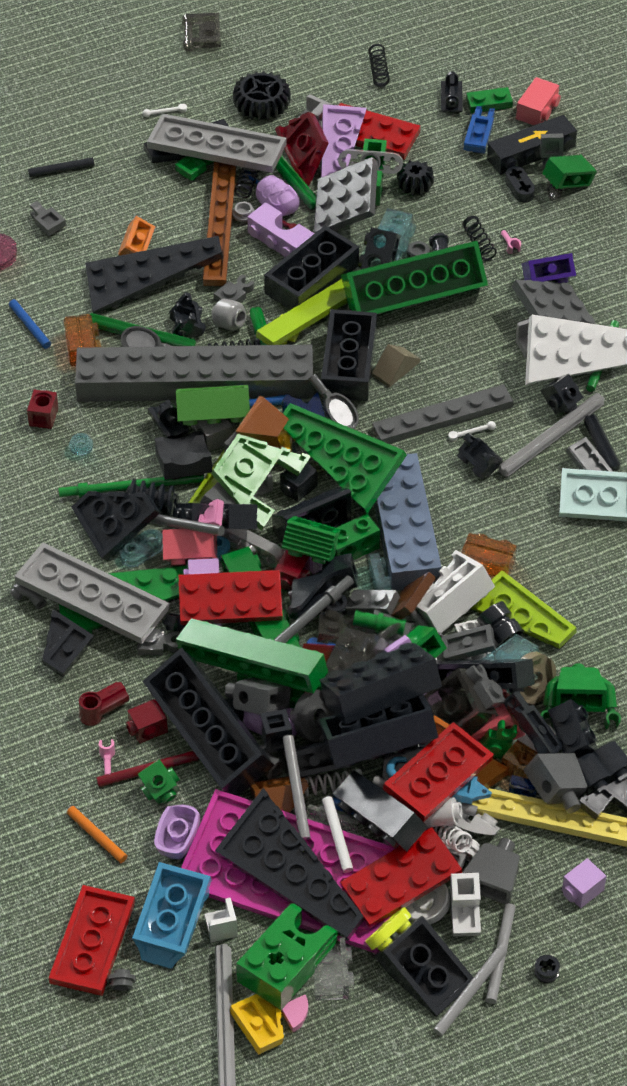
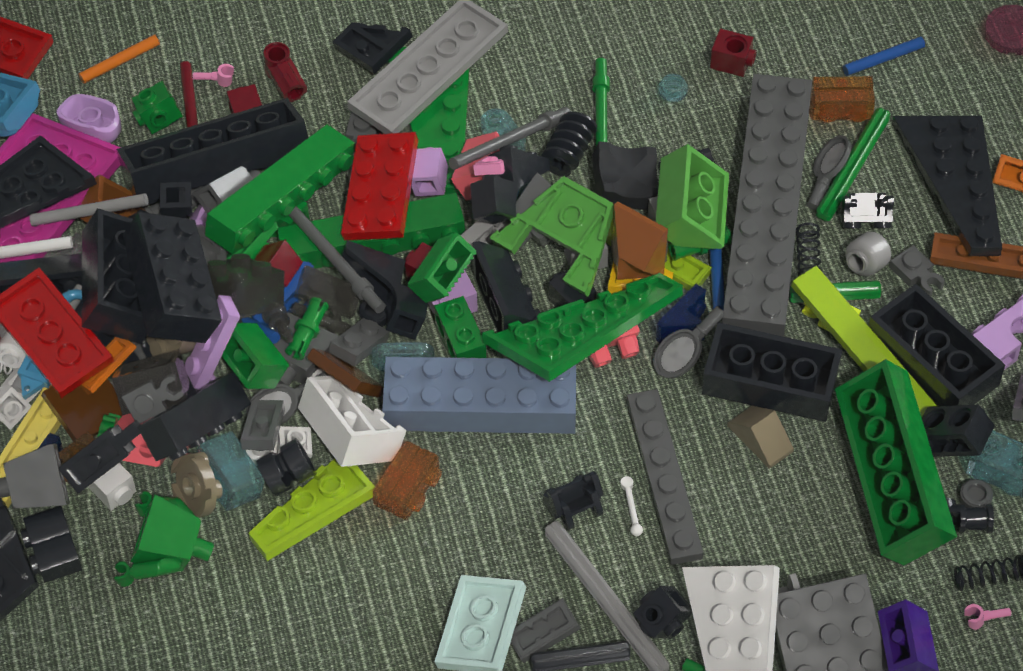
camera: 100 degrees right, 5 degrees up
(114, 518) = (538, 98): black plate -> none
(573, 728) = (103, 515): black brick -> none

